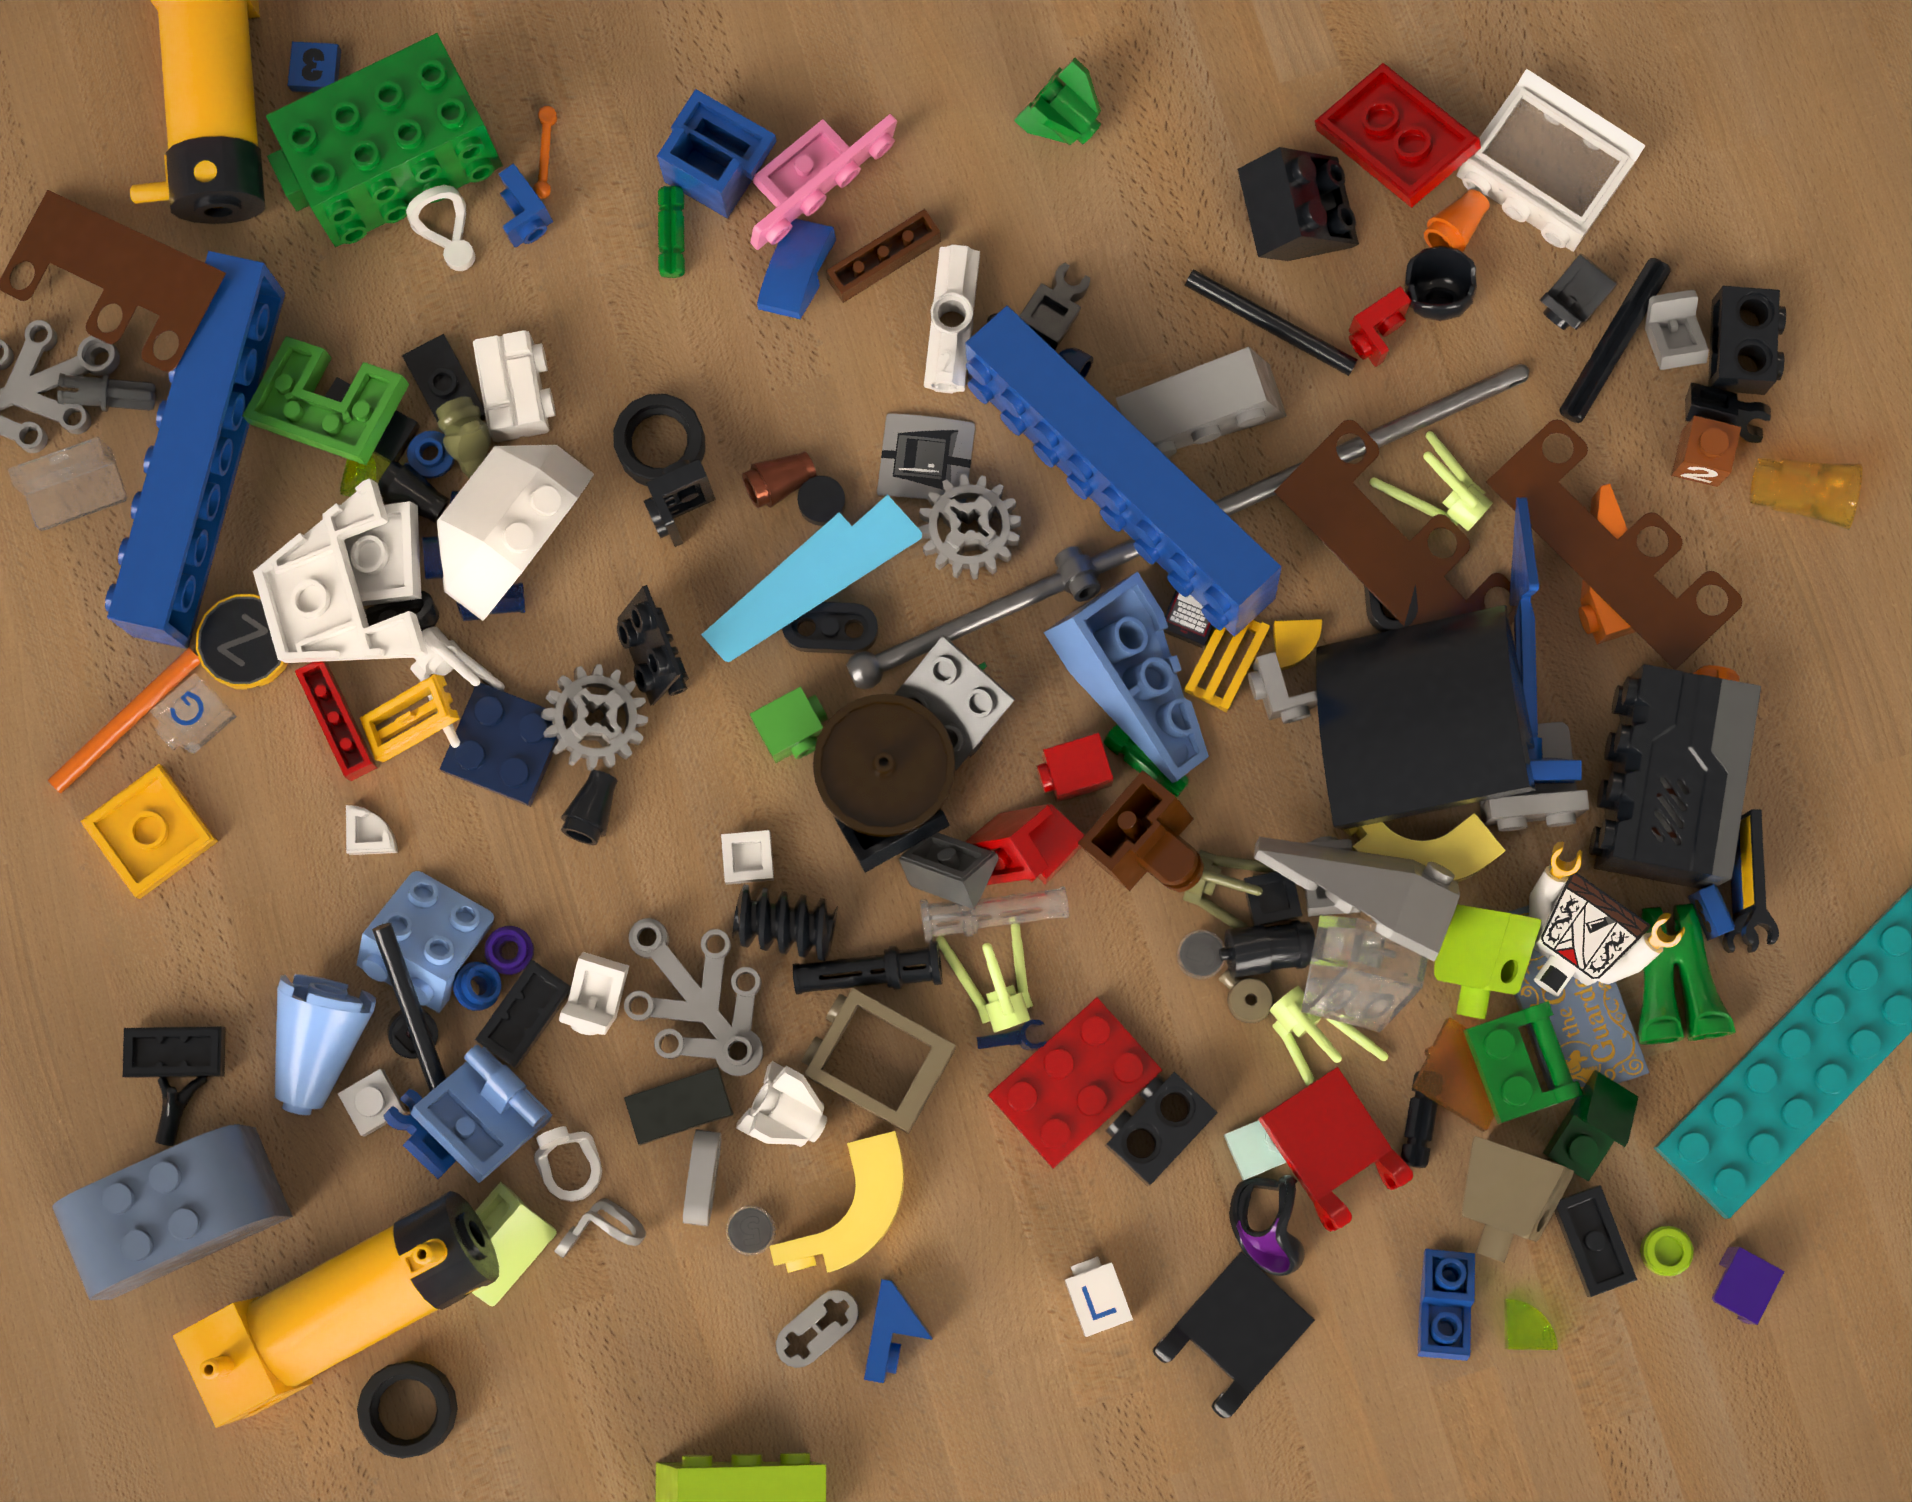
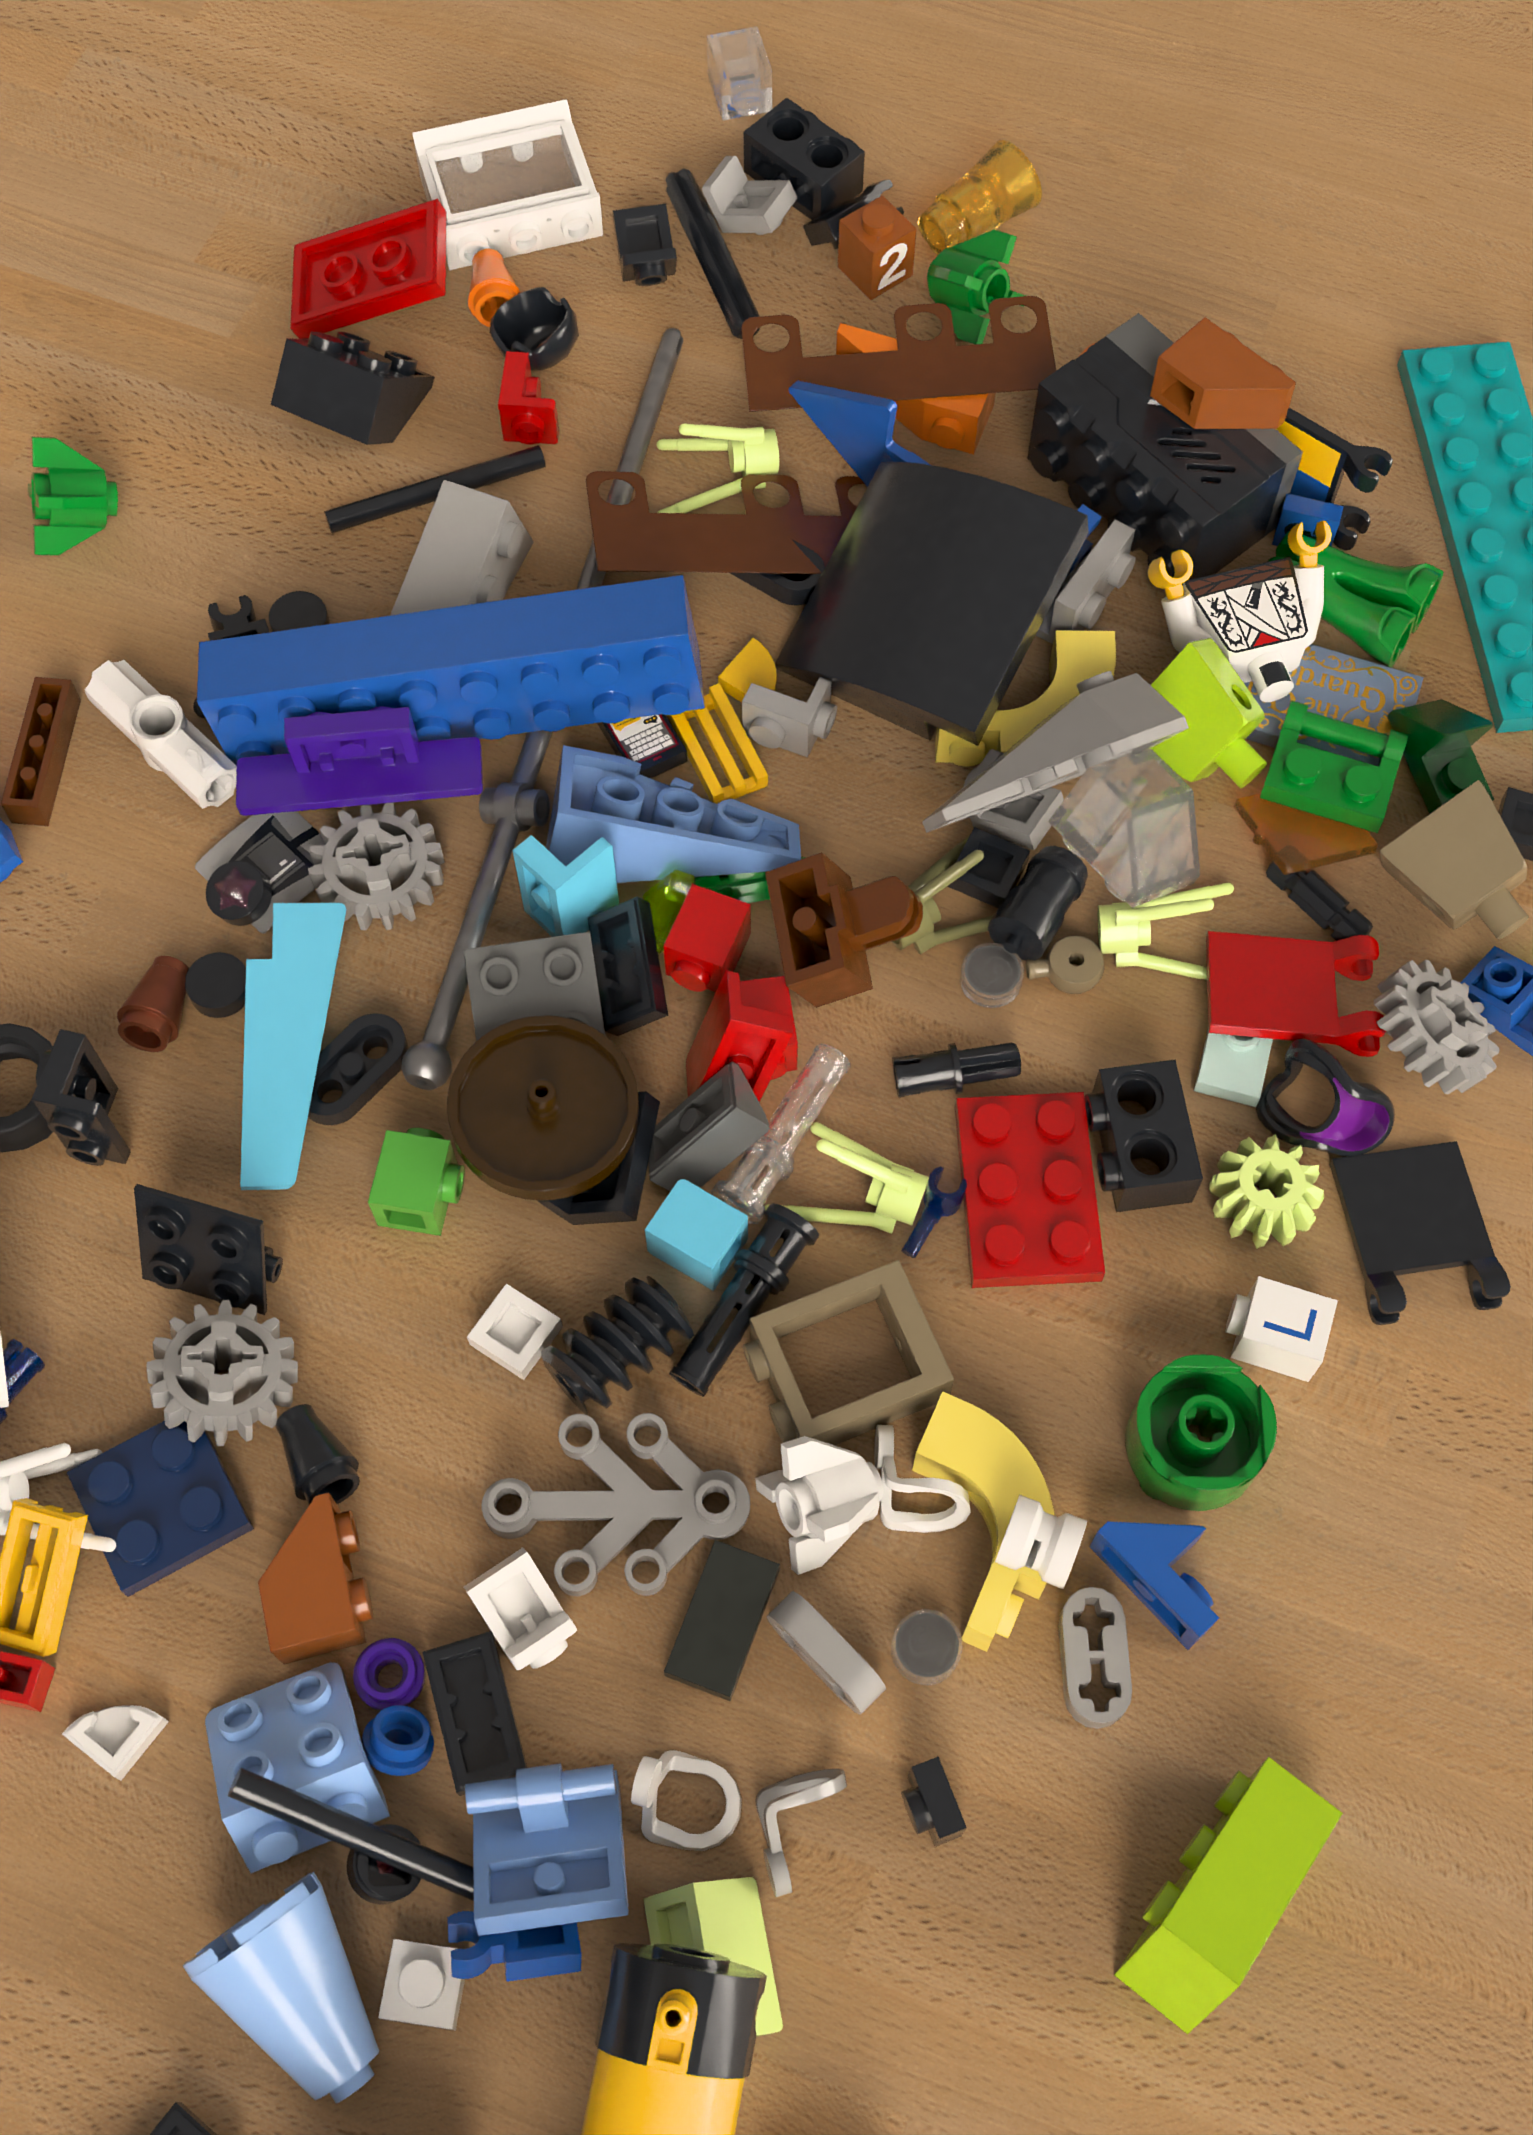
camera: 55 degrees left, 15 degrees down
(520, 869) = (311, 1589): none -> dark orange slope
(664, 1298) = (932, 1803): none -> black plate
(842, 1253) = (1041, 1541): none -> white wheel
(843, 1188) = (907, 1520): none -> white piece
(886, 913) = (696, 1233): none -> medium azure panel
(887, 459) = (238, 893): none -> black tile
(987, 1325) = (1225, 1407): none -> green brick
(1015, 466) = (356, 763): none -> dark purple bracket
(1024, 732) = (627, 966): none -> black plate
(1035, 669) = (563, 895): none -> medium azure panel
(1079, 722) = (666, 901): none -> clear neon green tile
(1102, 325) = (297, 611): none -> black tile
(1117, 981) = (954, 1068): none -> black axle
(1165, 1231) = (1257, 1209): none -> yellowish green gear
(1375, 1256) = (1436, 1026): none -> light grey gear
(1729, 542) = (970, 279): none -> green brick
(1730, 785) = (1220, 382): none -> dark orange slope
(1786, 233) = (739, 73): none -> clear brick

